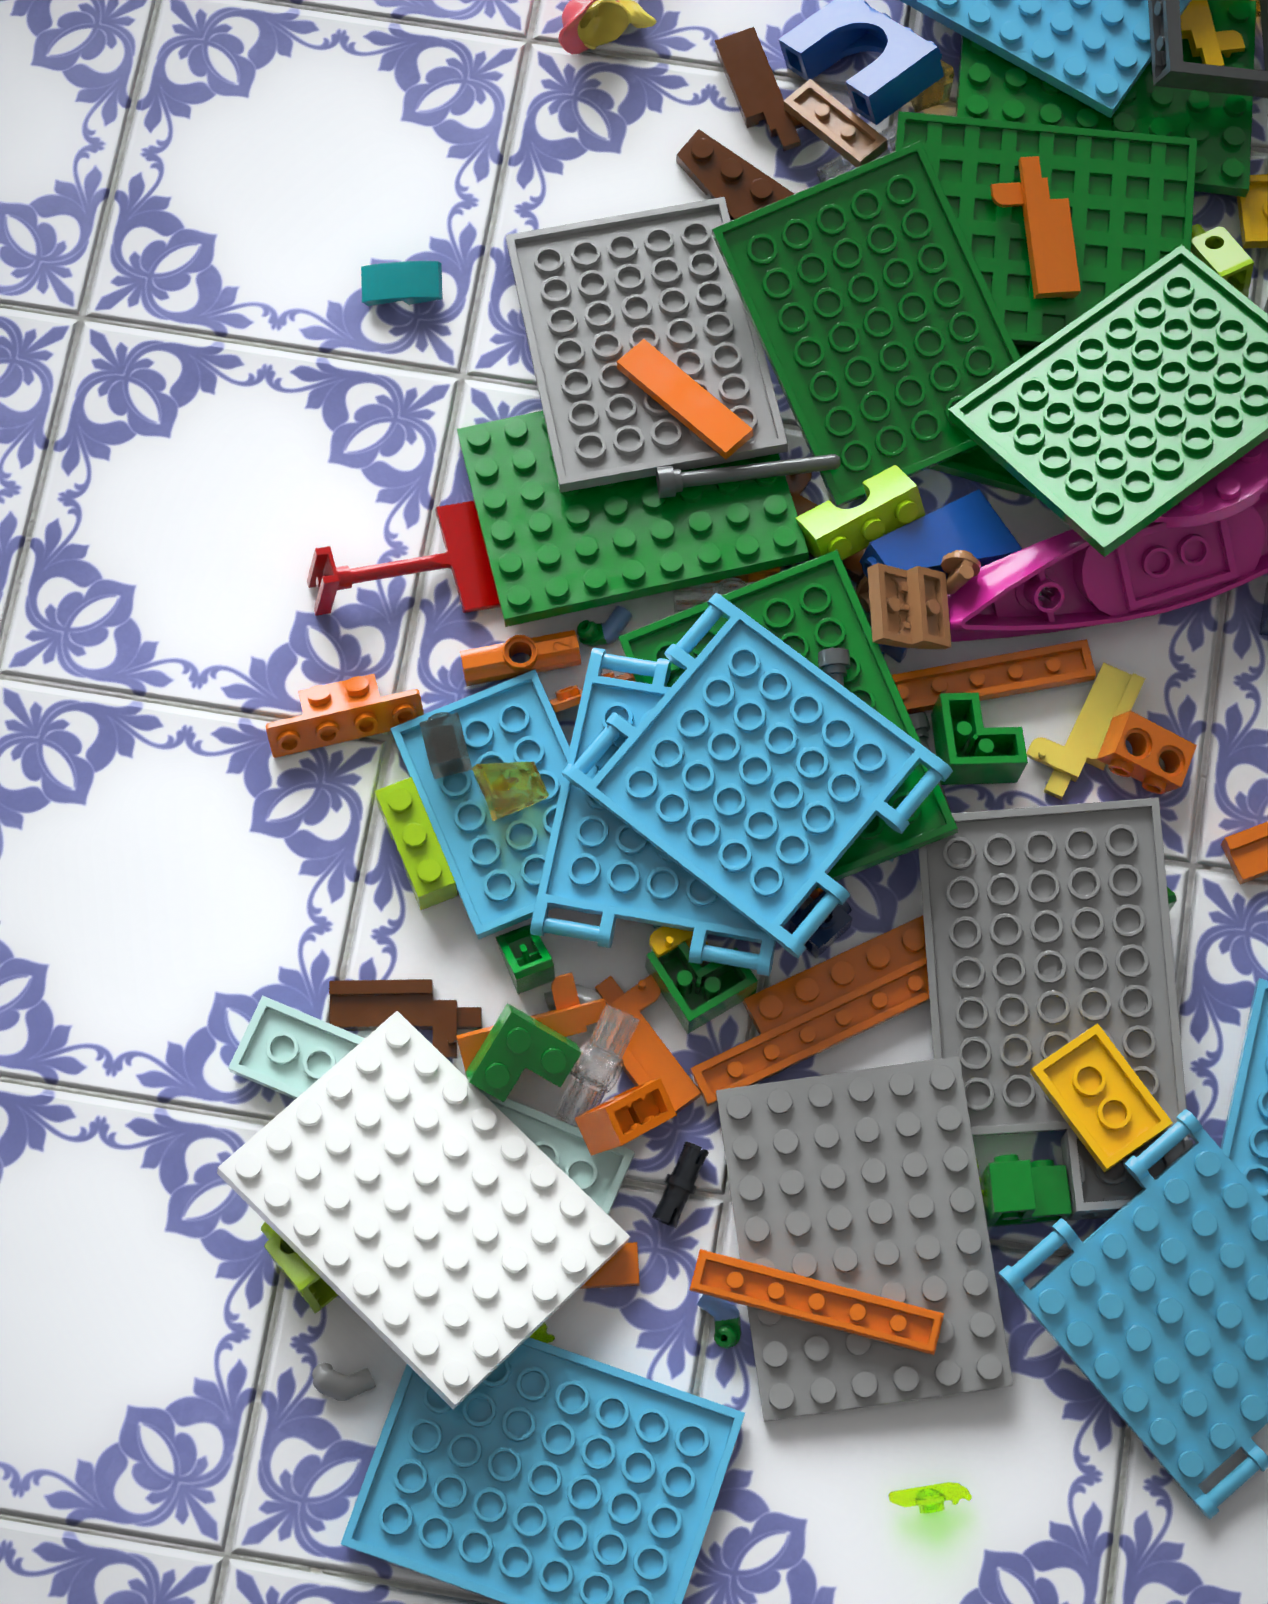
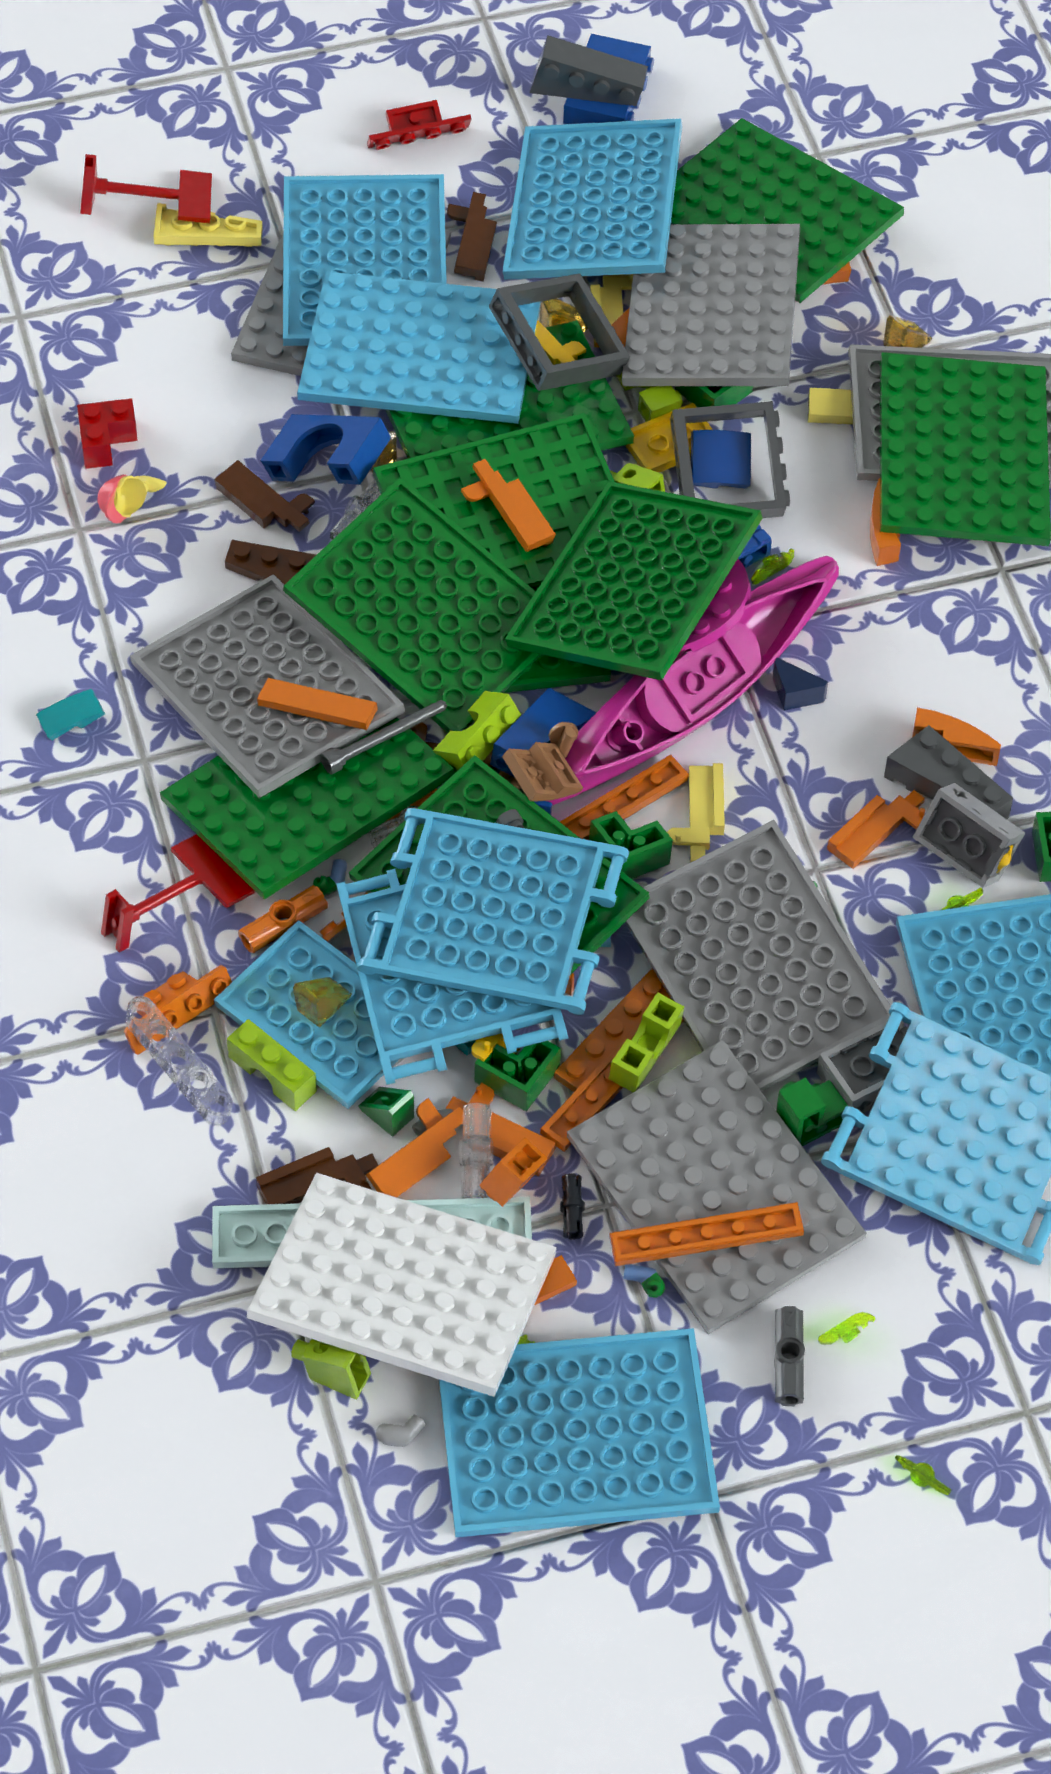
camera: 25 degrees left, 15 degrees down
(306, 775) = (180, 1074): none -> clear beam
(445, 744) = (262, 989): clear smoke brick -> none
(519, 1044) = (415, 1155): green brick -> none
(827, 932) = (593, 998): dark blue brick -> none
(829, 1525) = (789, 1372): none -> dark grey piece
(835, 124) = (328, 497): medium nougat plate -> none
(864, 1020) = (654, 1033): none -> lime arch
(1101, 1097) = (832, 1021): yellow plate -> none
(1148, 744) = (747, 805): orange brick -> none

